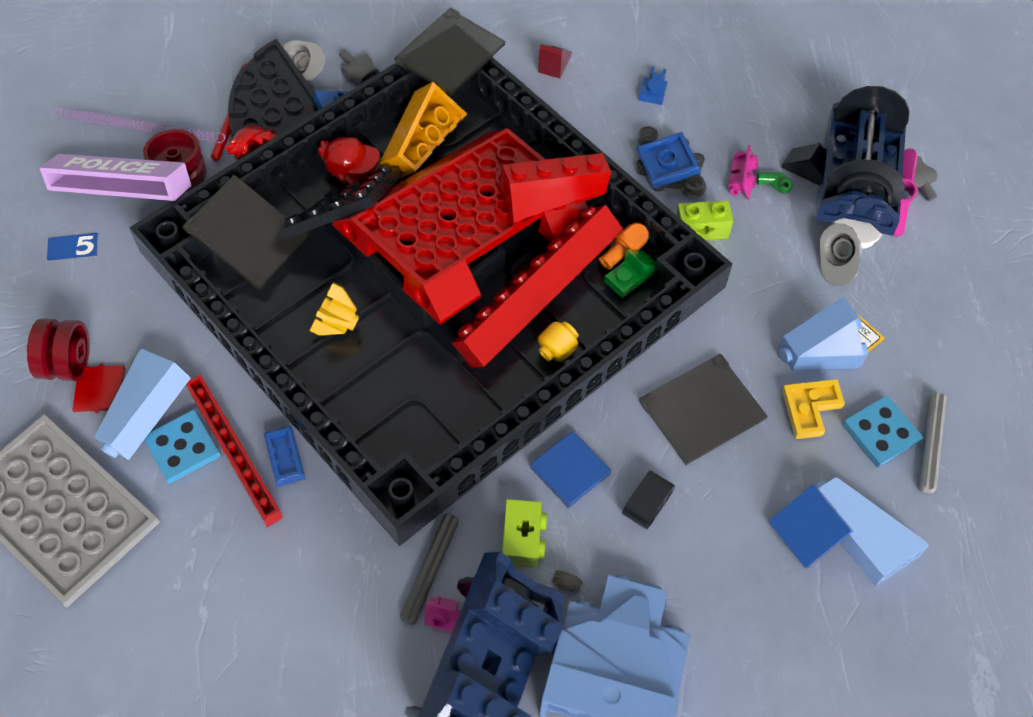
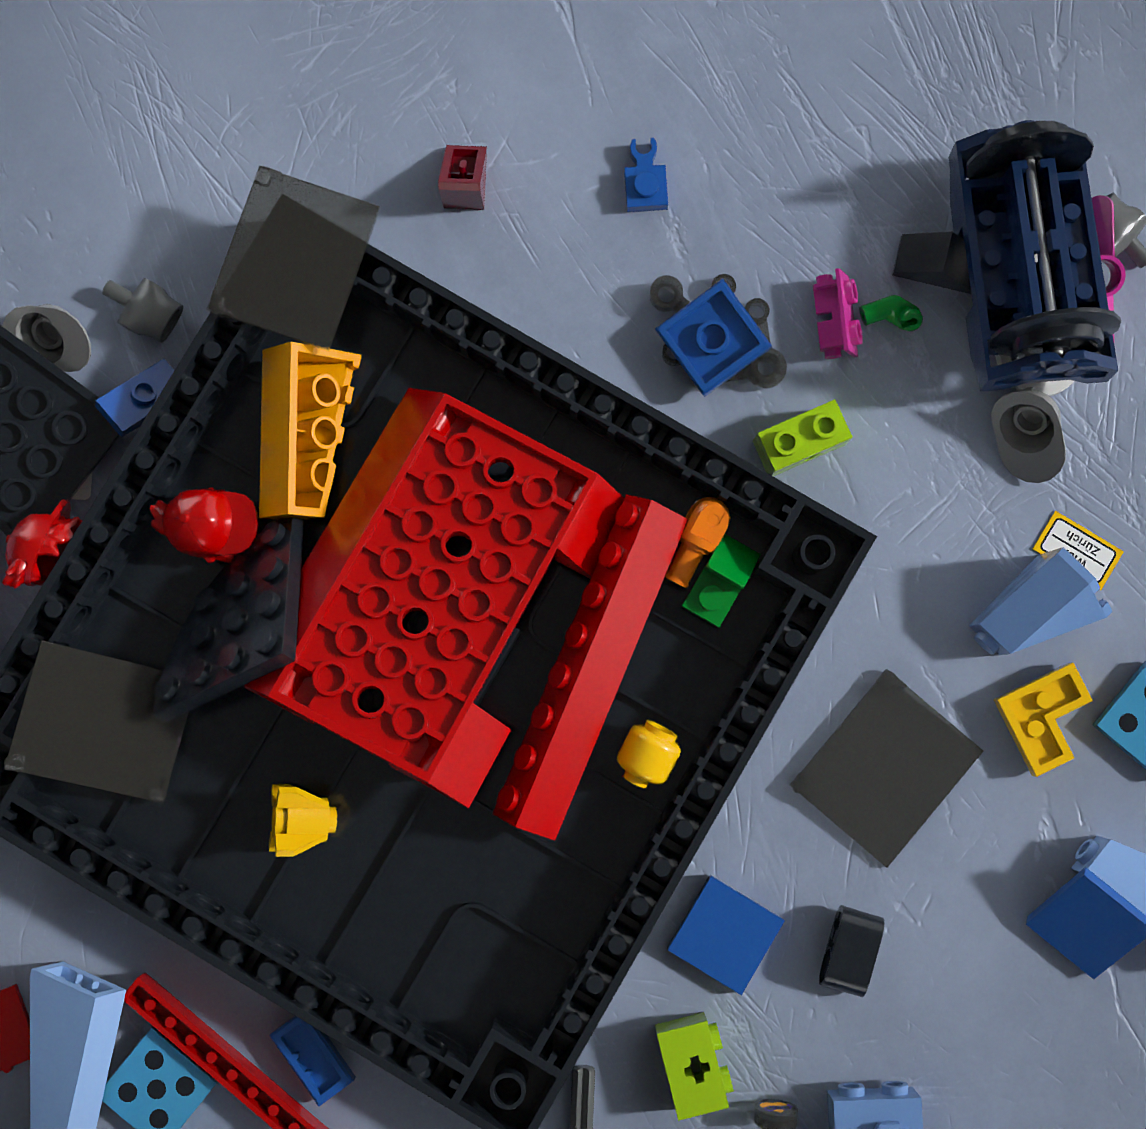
camera: 10 degrees left, 25 degrees up
(551, 184) = (556, 508): wedge -> none

